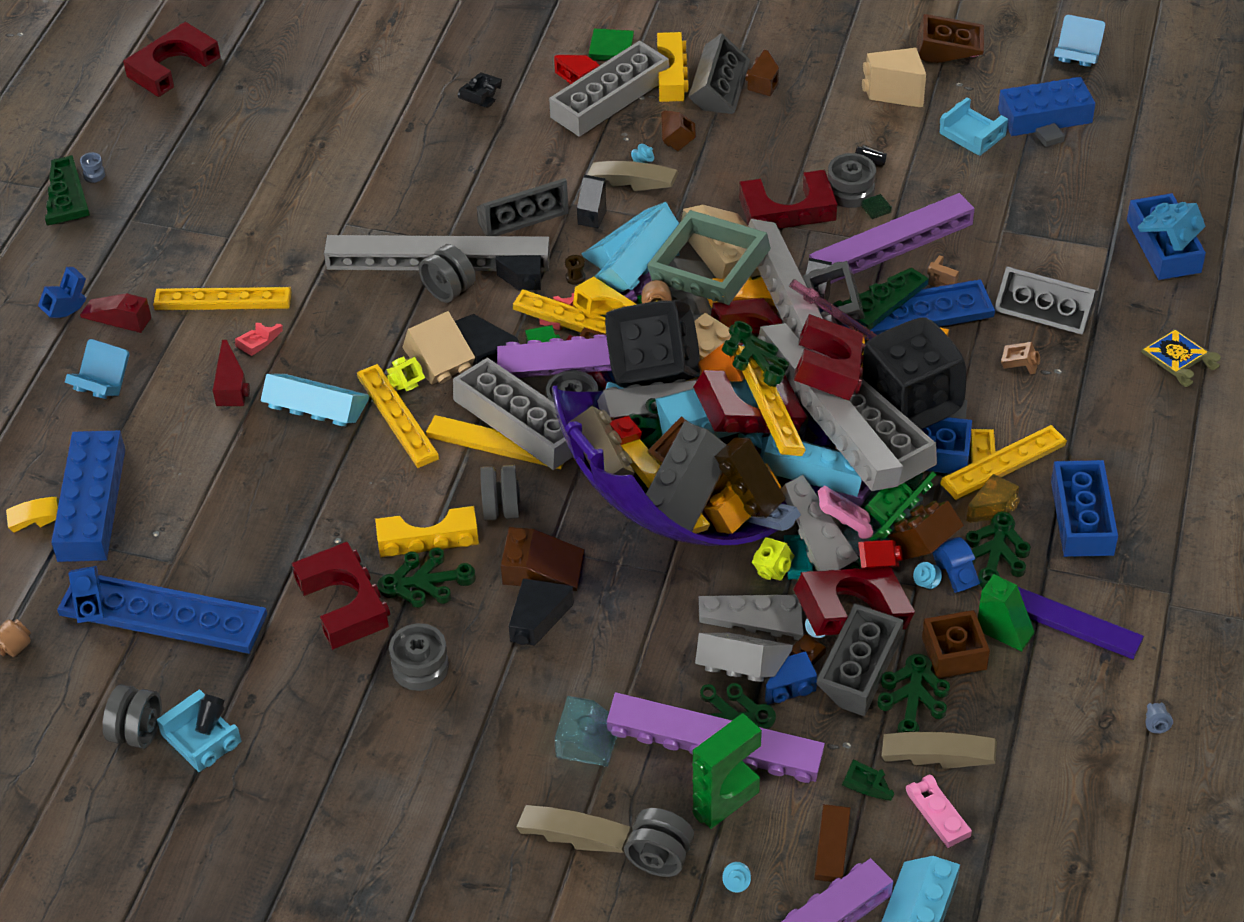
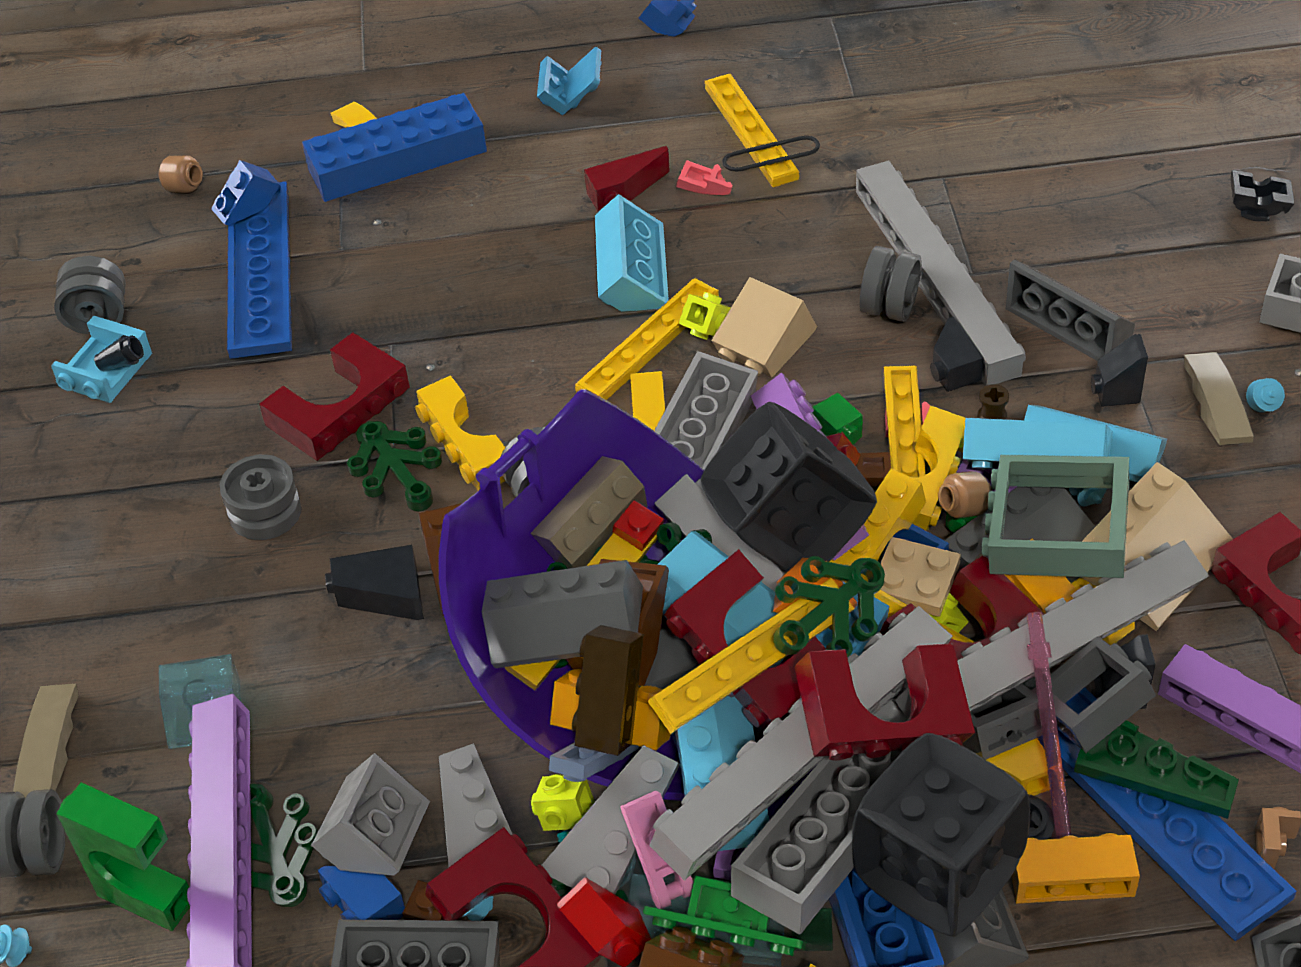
camera: 70 degrees right, 0 degrees up
(120, 310) = (676, 64): dark red slope -> none
(254, 292) = (773, 144): none -> black piece
(483, 337) = (808, 360): black slope -> none

